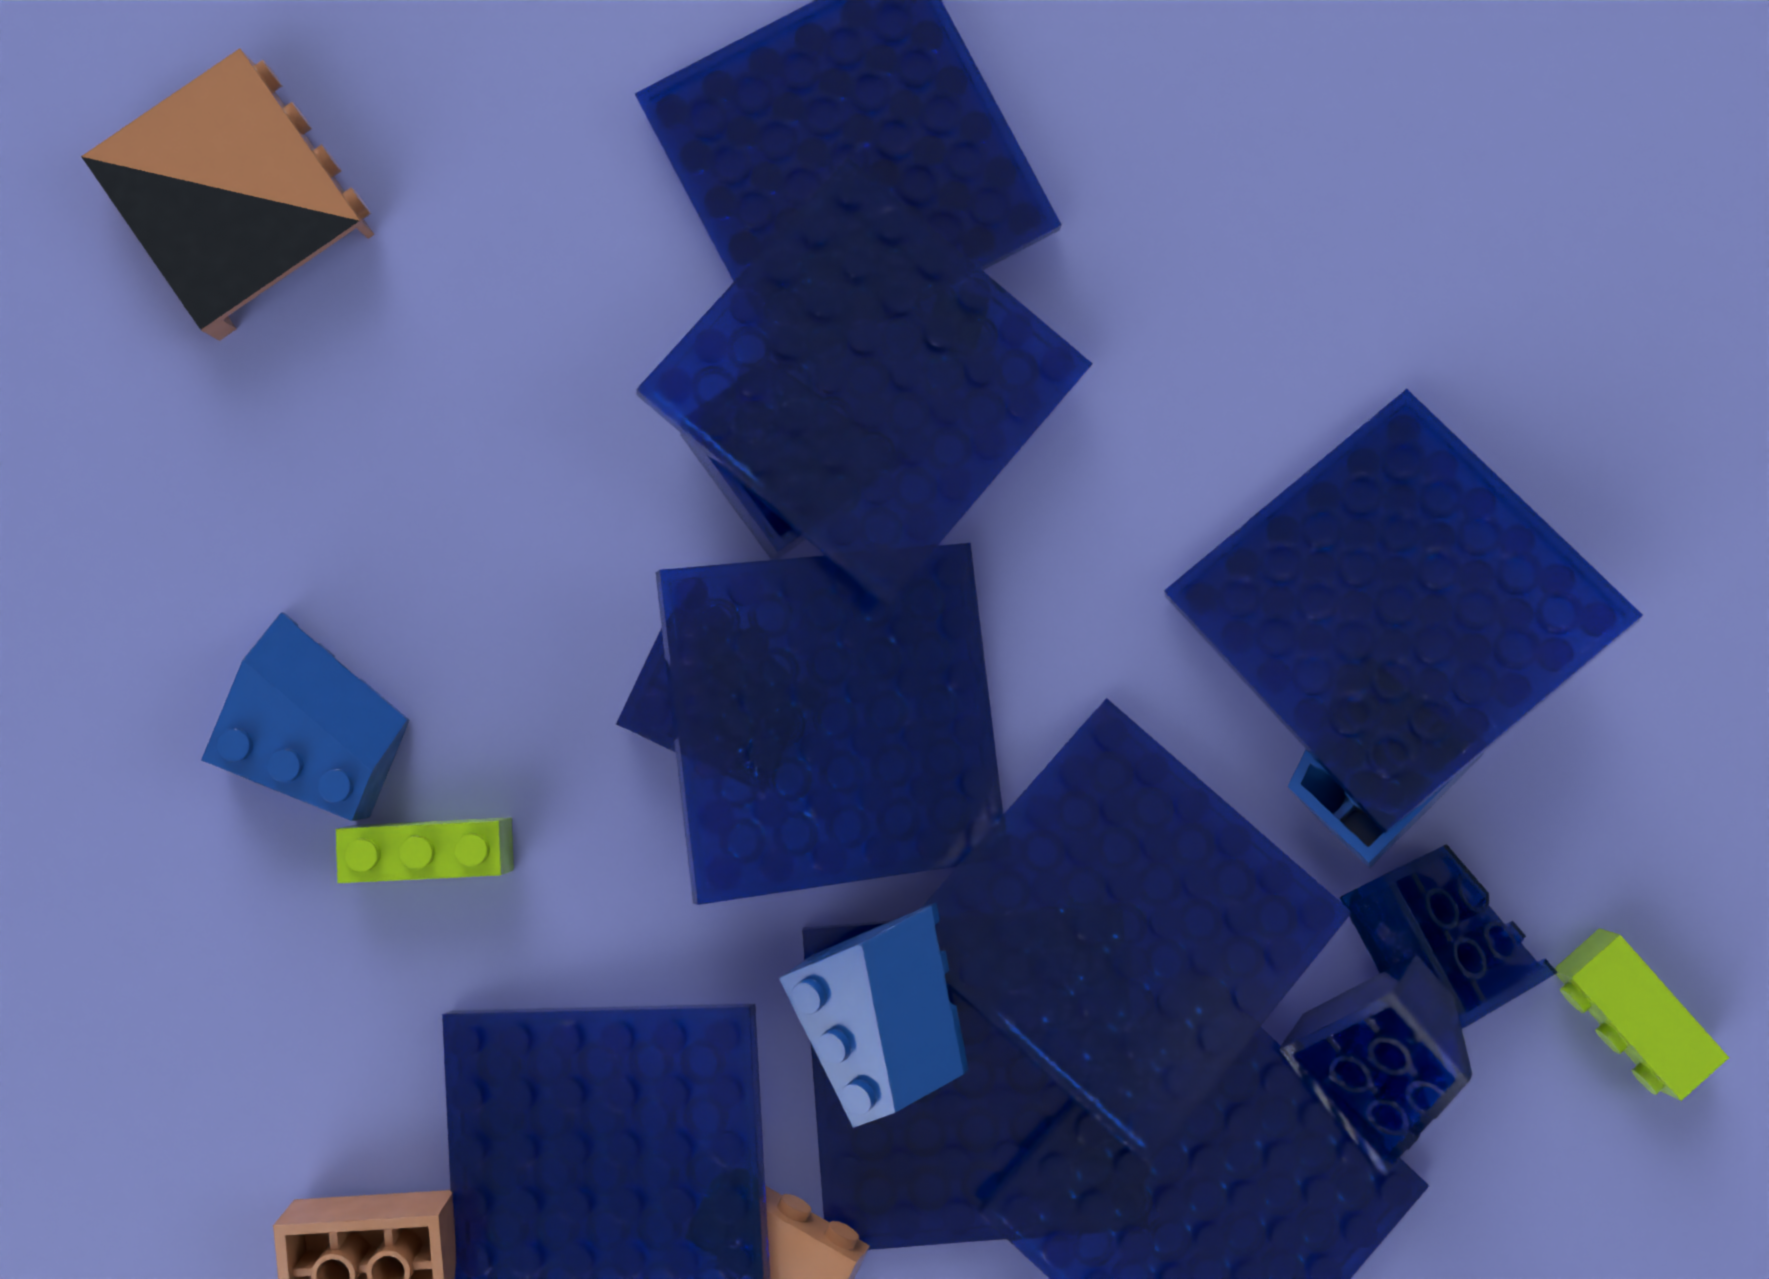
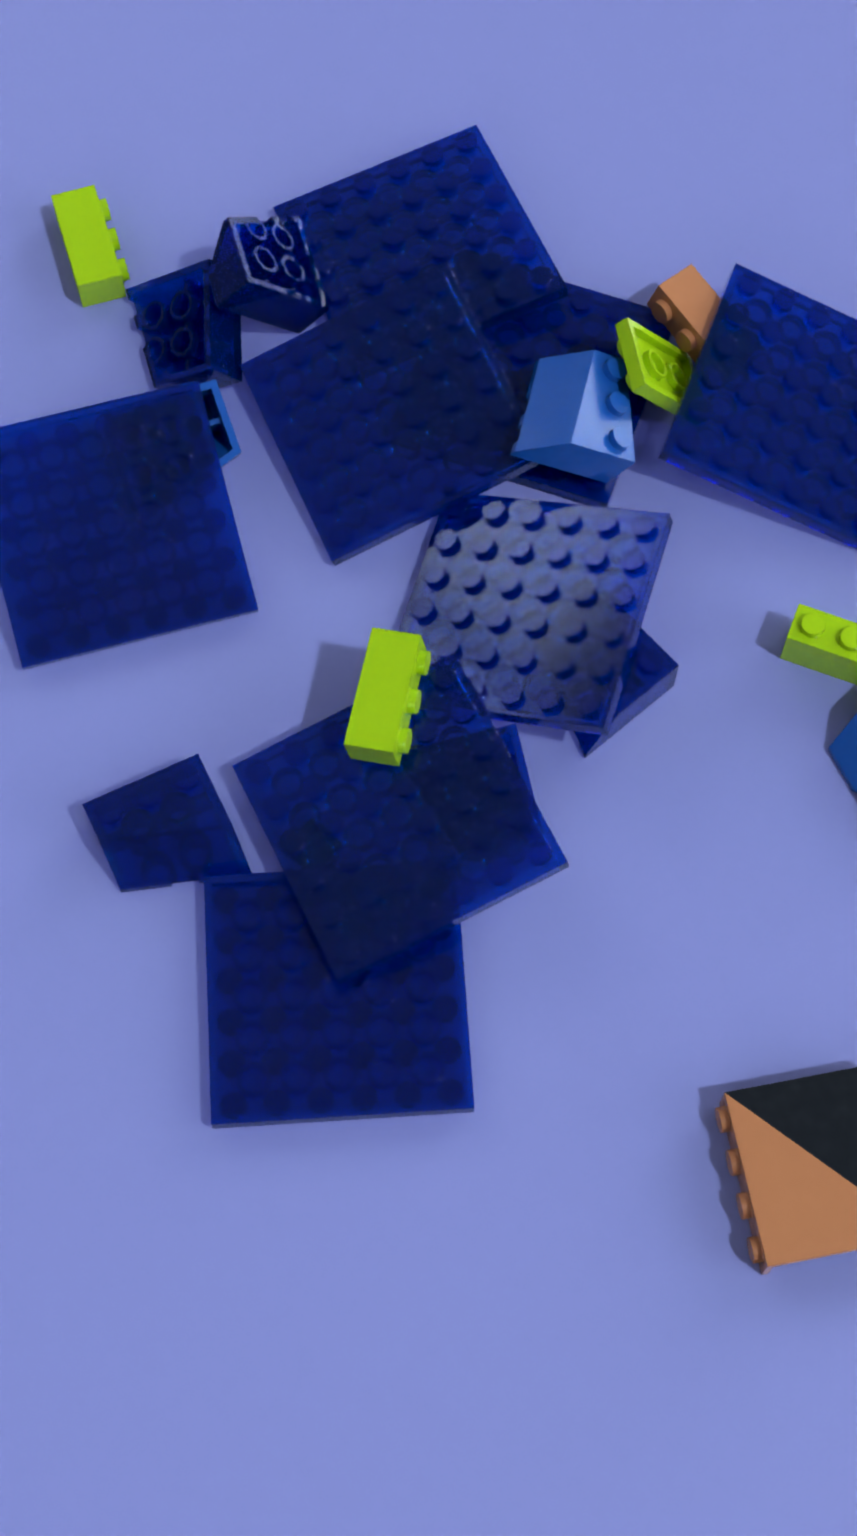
camera: 155 degrees left, 20 degrees down
(812, 1136) = (653, 365): none -> lime plate
(939, 495) = (387, 697): none -> lime brick
(1131, 263) = (166, 829): none -> clear blue wedge

